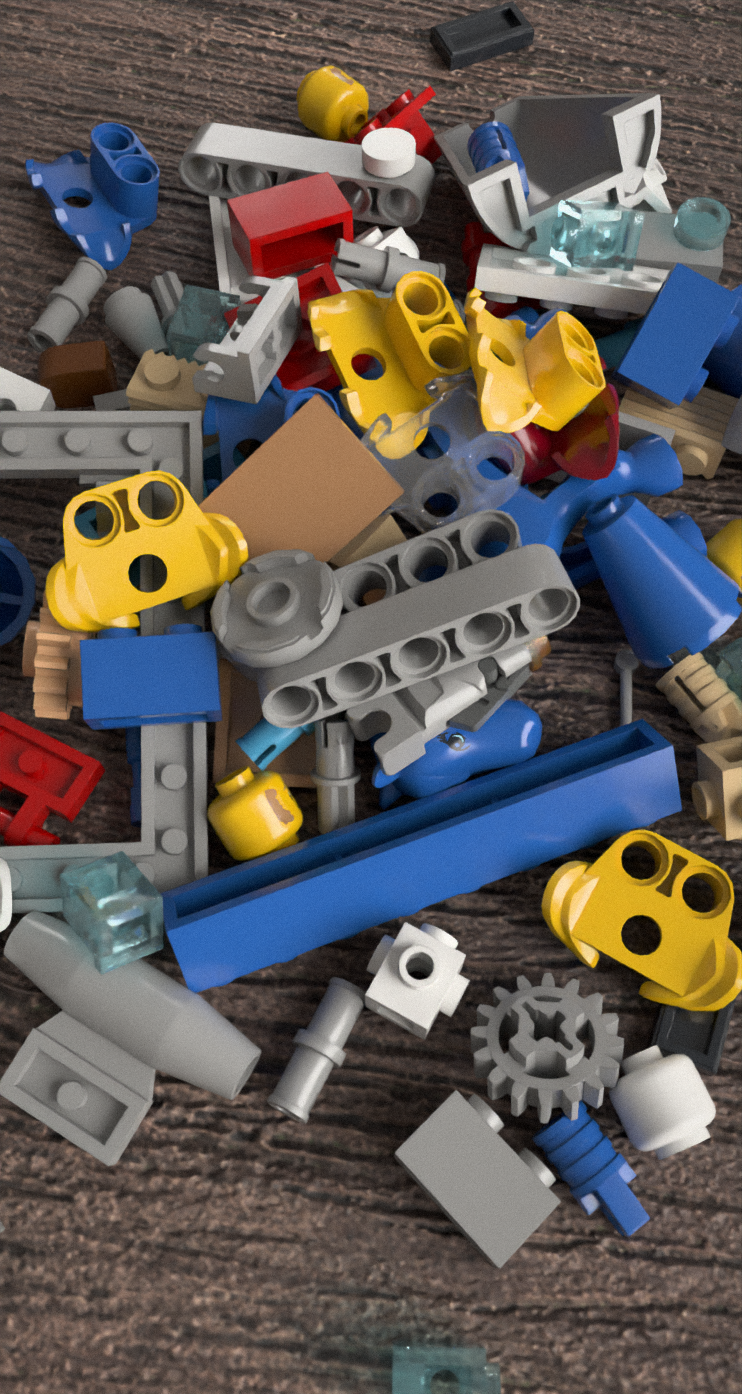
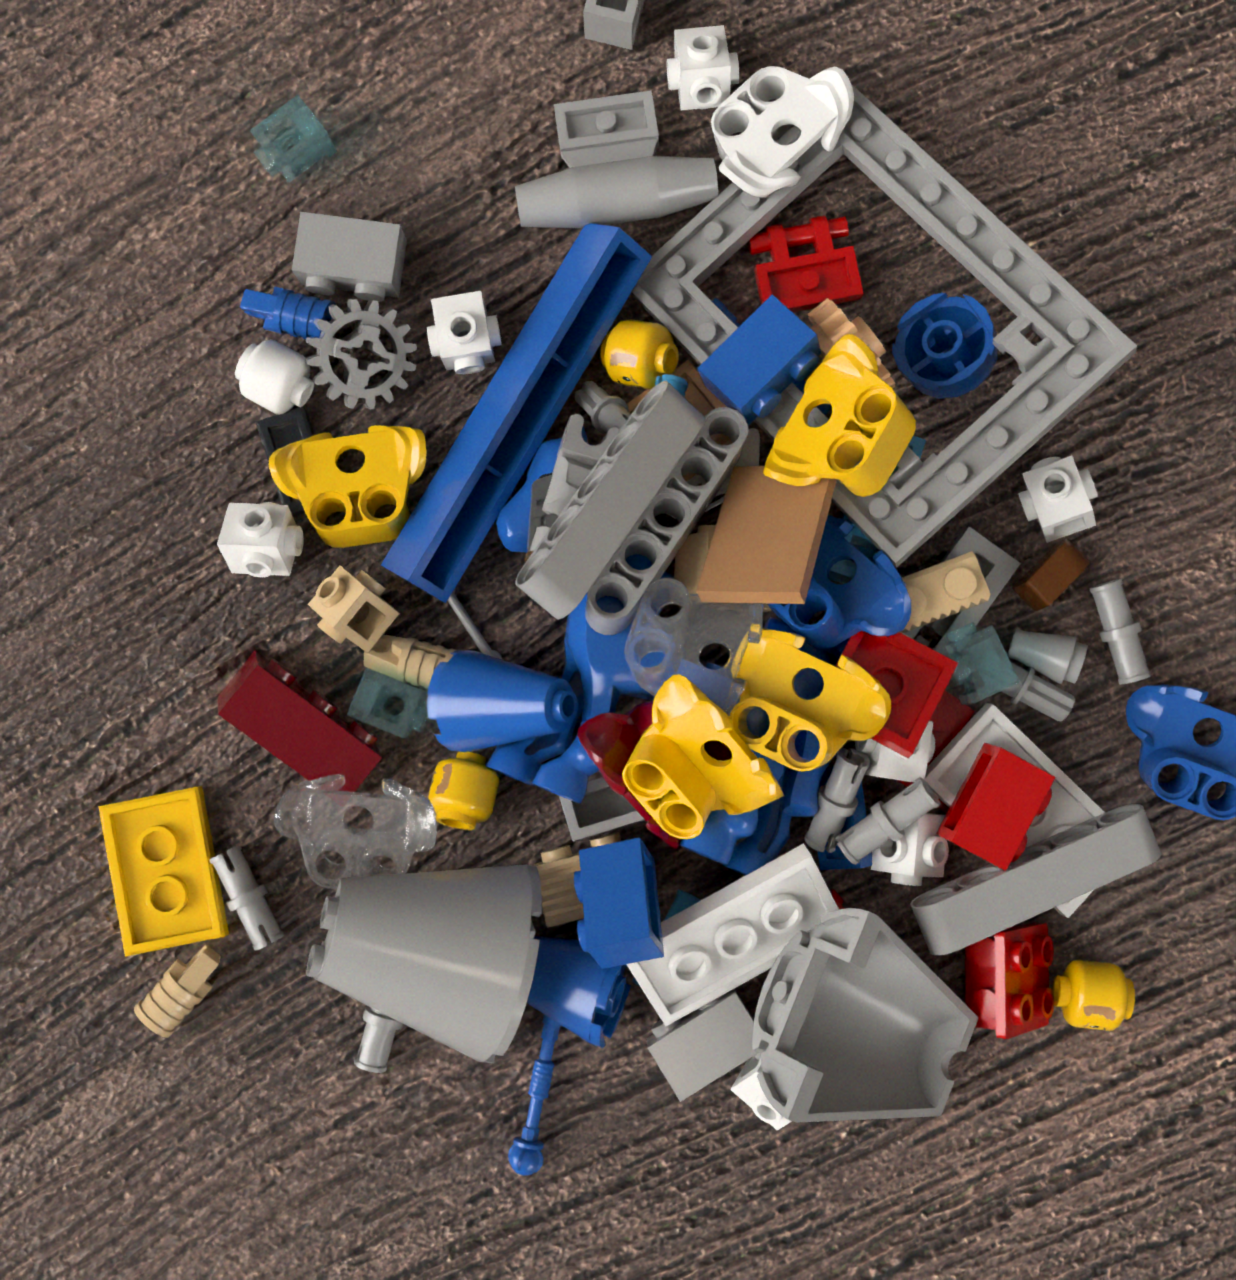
camera: 145 degrees right, 20 degrees up
(113, 910) = (647, 211): clear light blue brick -> none
(254, 345) = (901, 632): light grey hinge -> none
(277, 609) = (712, 450): light grey tile -> none
(318, 1050) = (491, 256): light grey pin -> none
(388, 152) = (972, 924): white tile -> none
(481, 36) = (1044, 1196): black tile -> none
(492, 144) = (888, 1004): blue hinge -> none
(596, 234) = (757, 980): clear light blue brick -> none
(701, 224) = (690, 1074): clear light blue tile -> none

